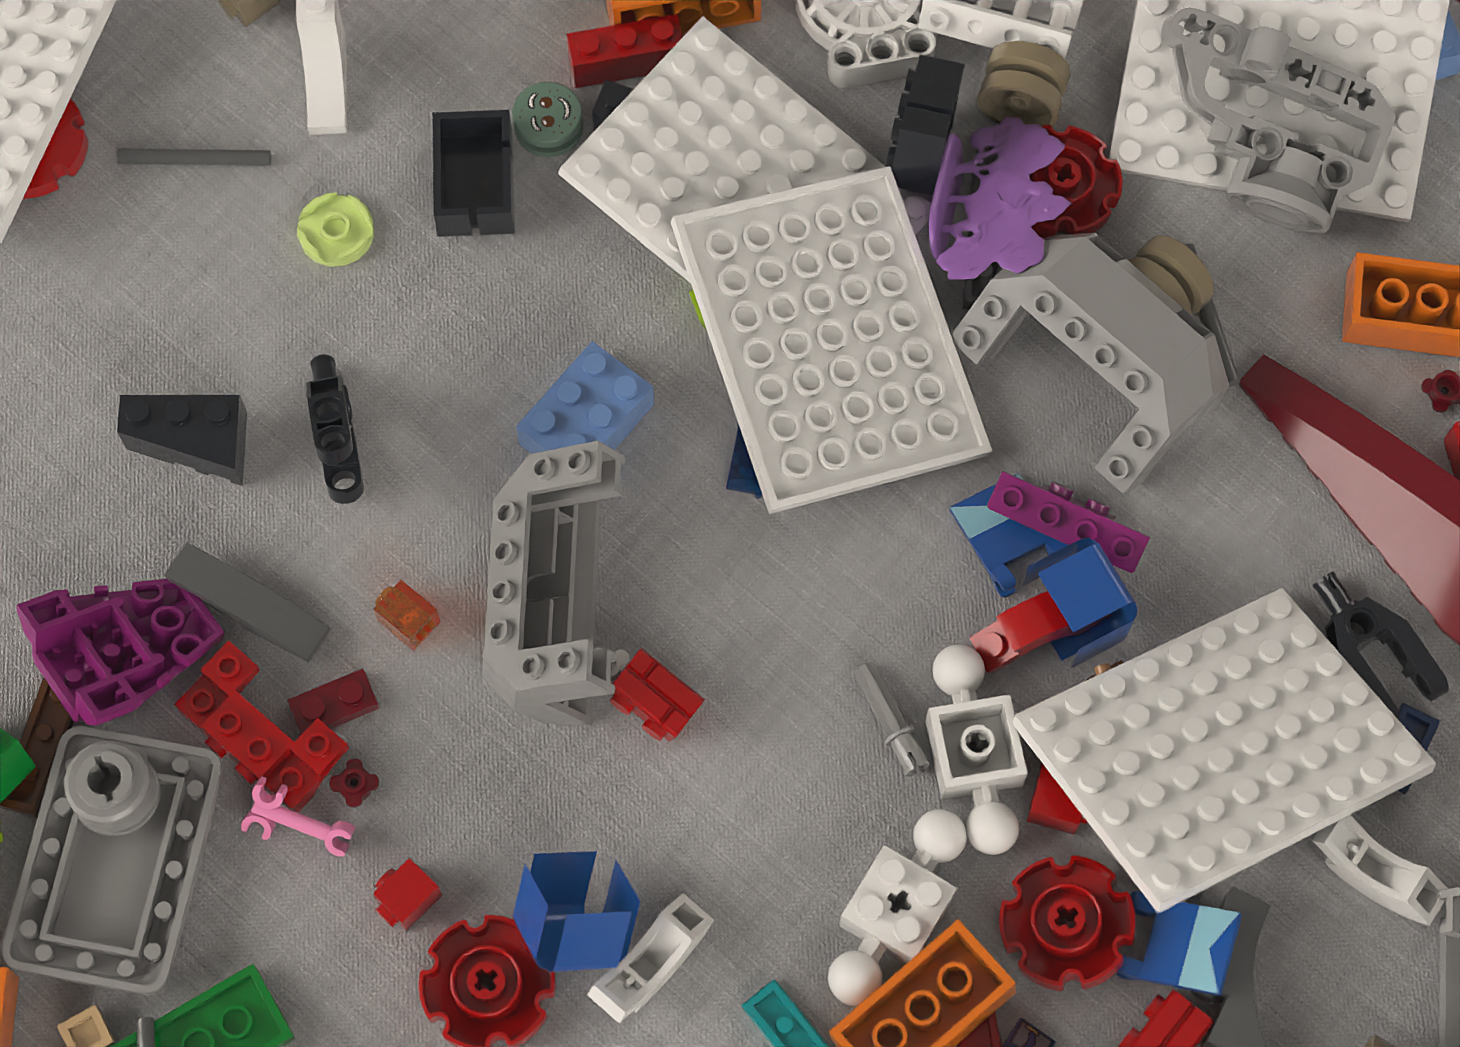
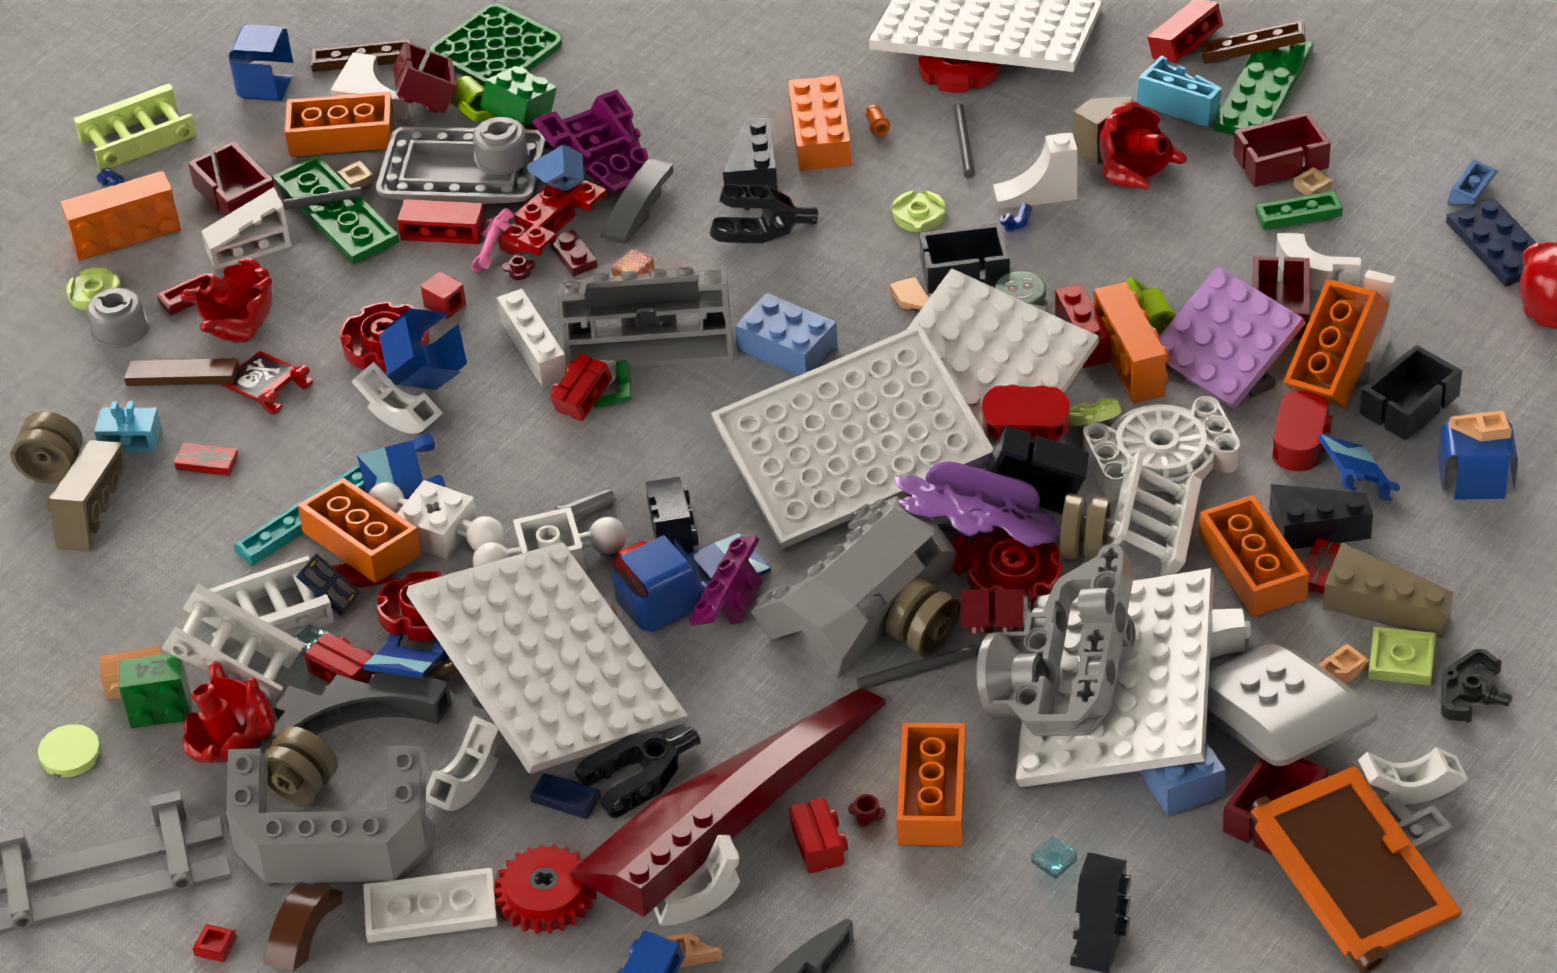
camera: 90 degrees right, 25 degrees down
(123, 336) = (819, 123): none -> orange brick
(129, 262) = (878, 123): none -> orange pin
(192, 701) = (559, 168): none -> medium blue slope
(230, 896) = (441, 221): none -> red brick
(386, 104) = (1021, 220): none -> clear blue arm
(516, 254) = (909, 294): none -> light nougat tile
(531, 763) = (532, 337): none -> white brick
(631, 640) = (623, 374): none -> green piece
(791, 962) = (397, 465): none -> blue flag
(800, 56) = (1092, 413): none -> yellowish green tile
(833, 119) = (1032, 409): none -> red brick
(932, 586) = (670, 512): none -> black wedge
(1174, 193) = (999, 608): none -> dark red piece

